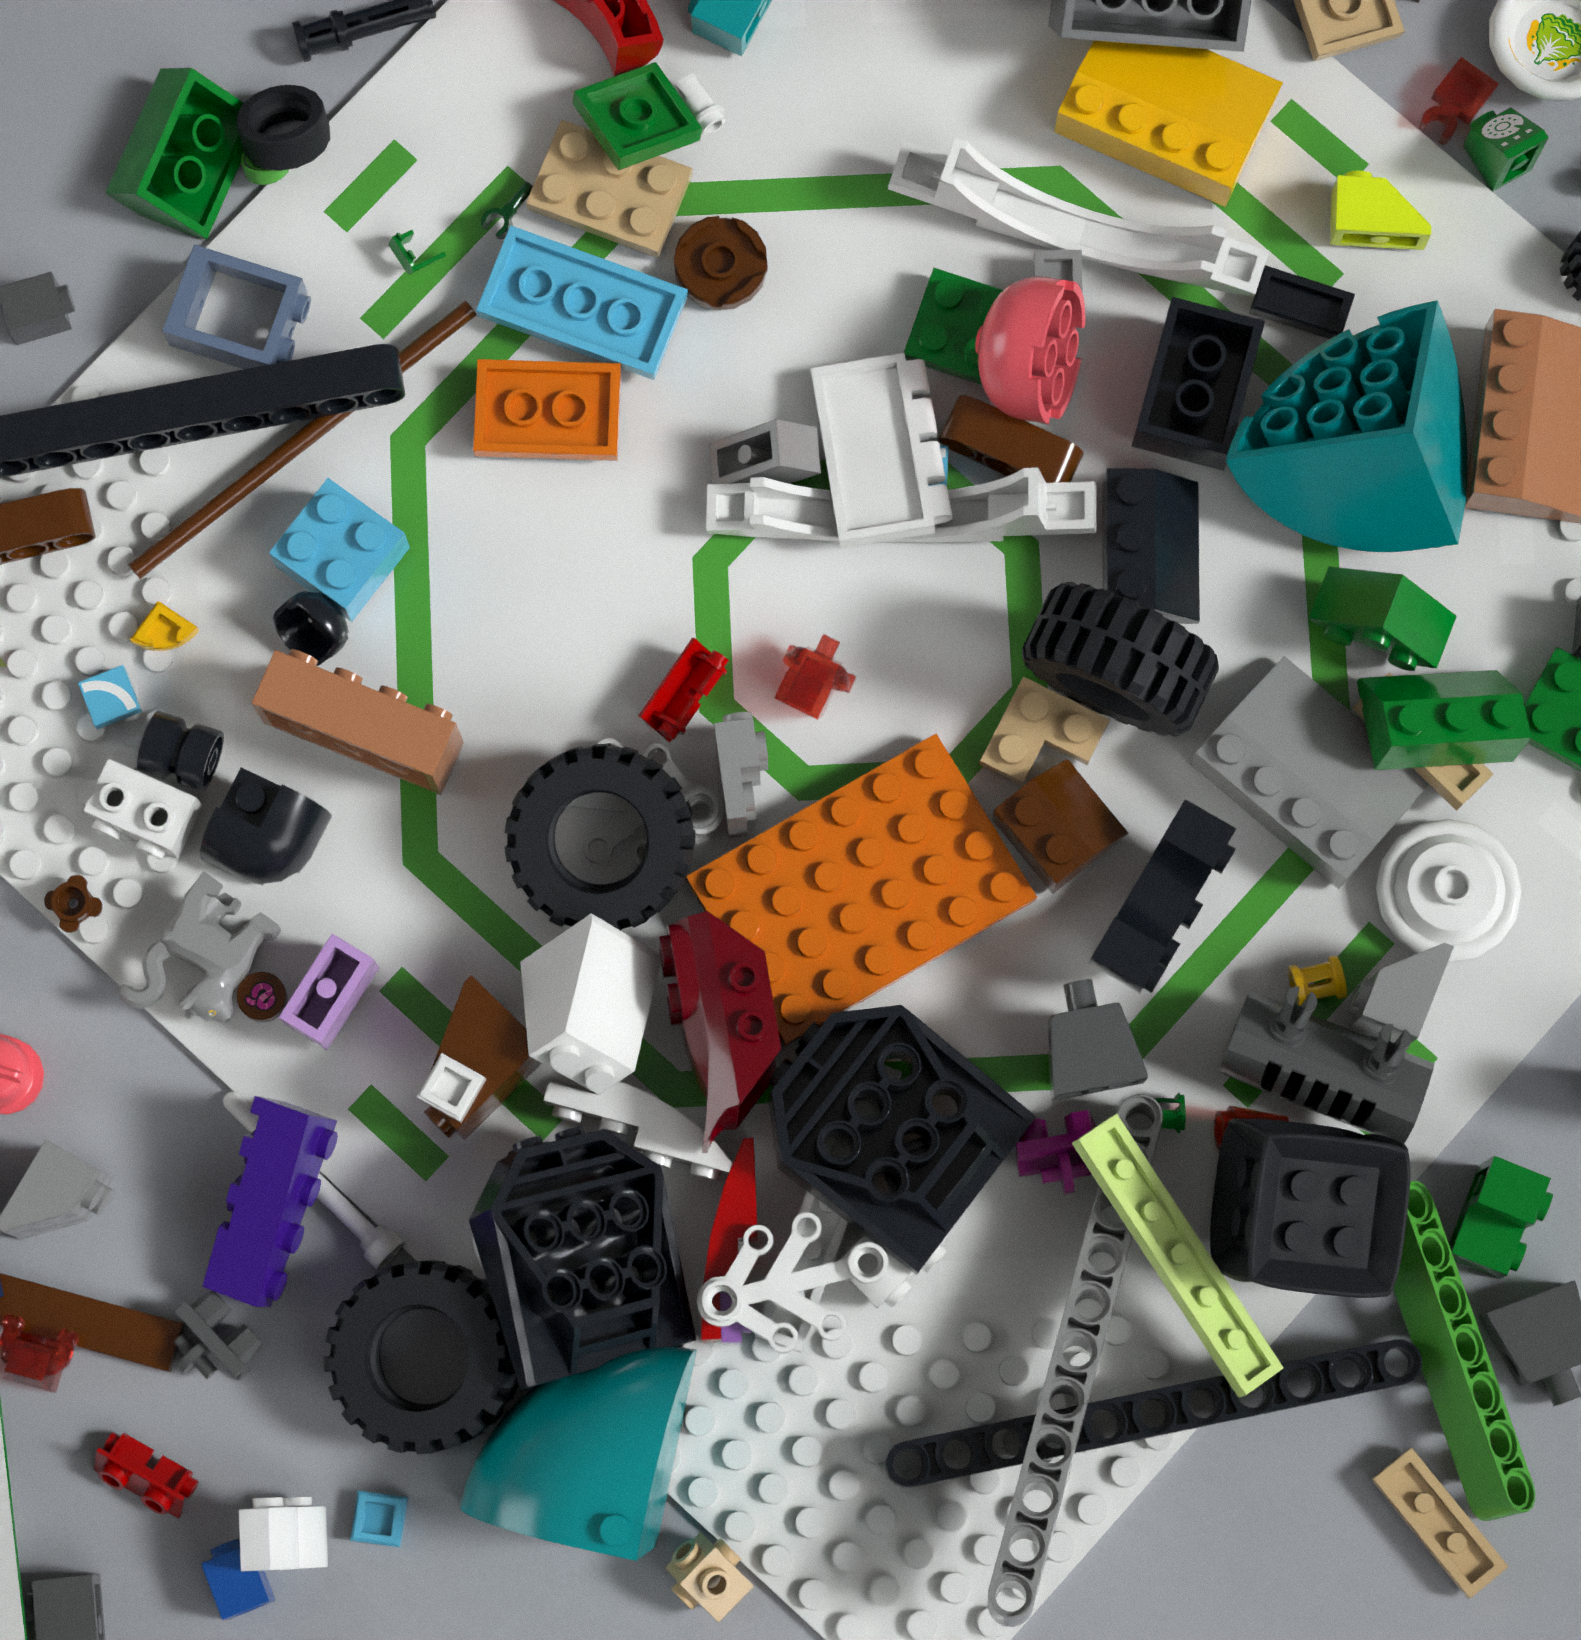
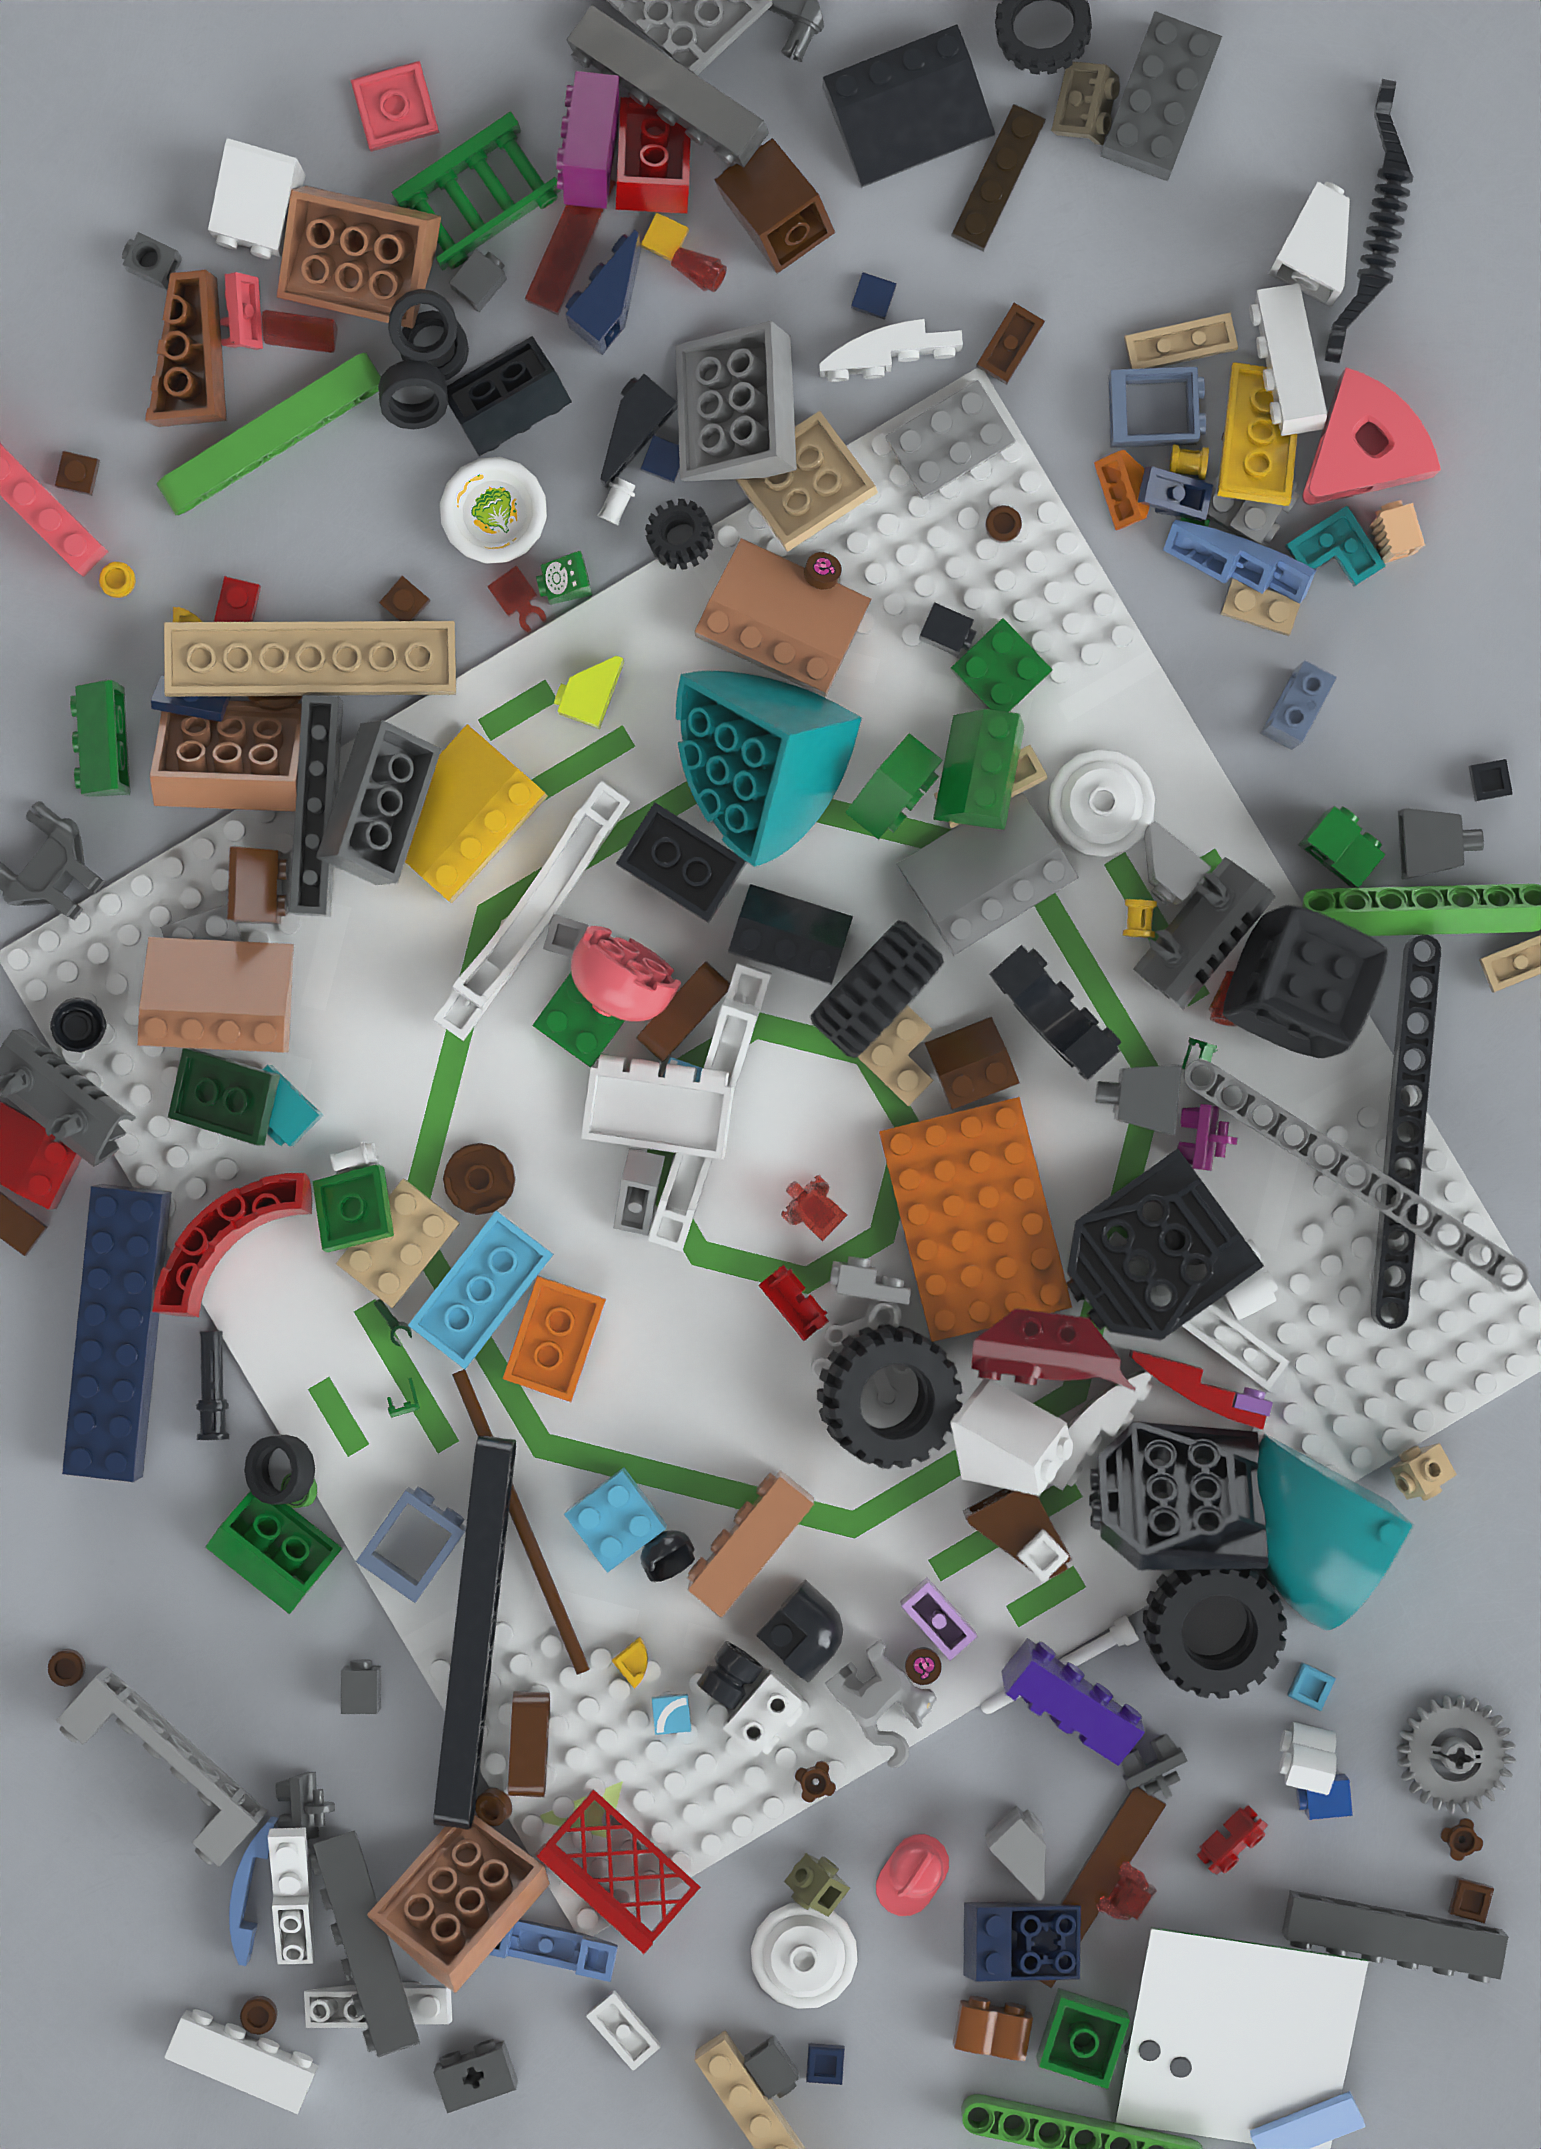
camera: 80 degrees left, 10 degrees up
(783, 1285) = (1245, 1362): white plant -> none
(1177, 1256) = (1309, 1083): yellowish green plate -> none
(1301, 303) = (639, 764): black tile -> none

